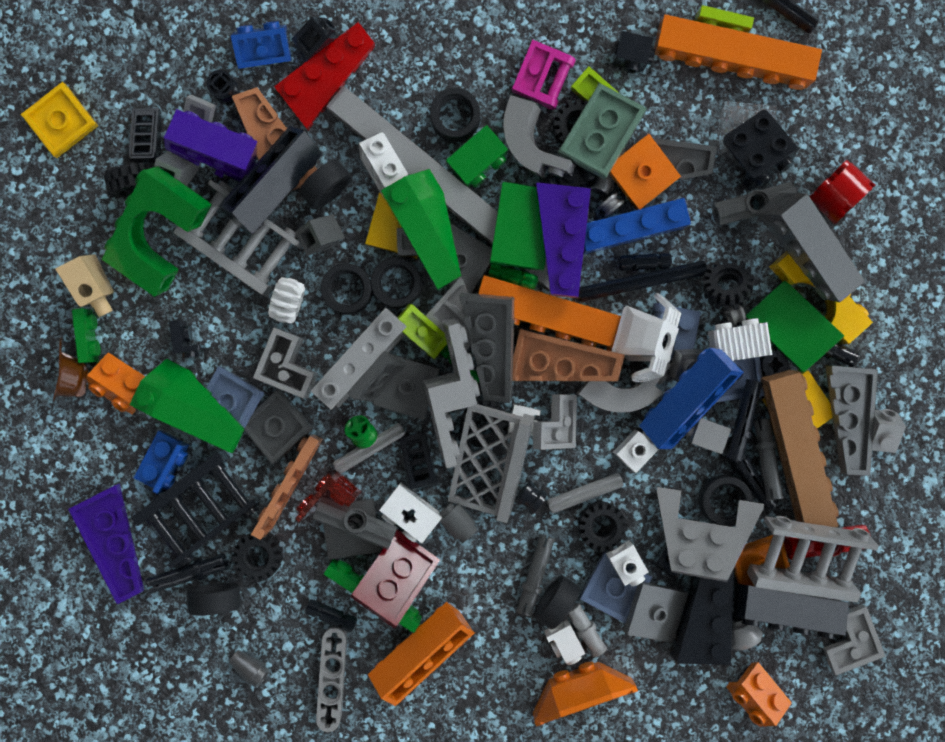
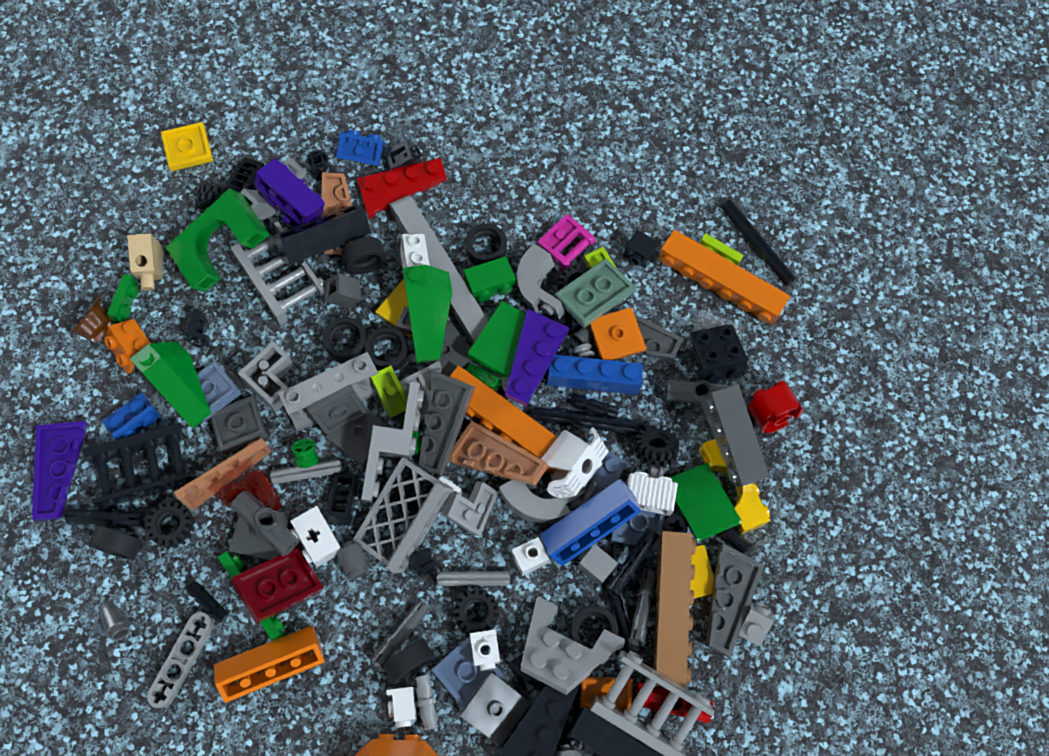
camera: 10 degrees right, 20 degrees down
(286, 300) = (293, 328): white gear -> none

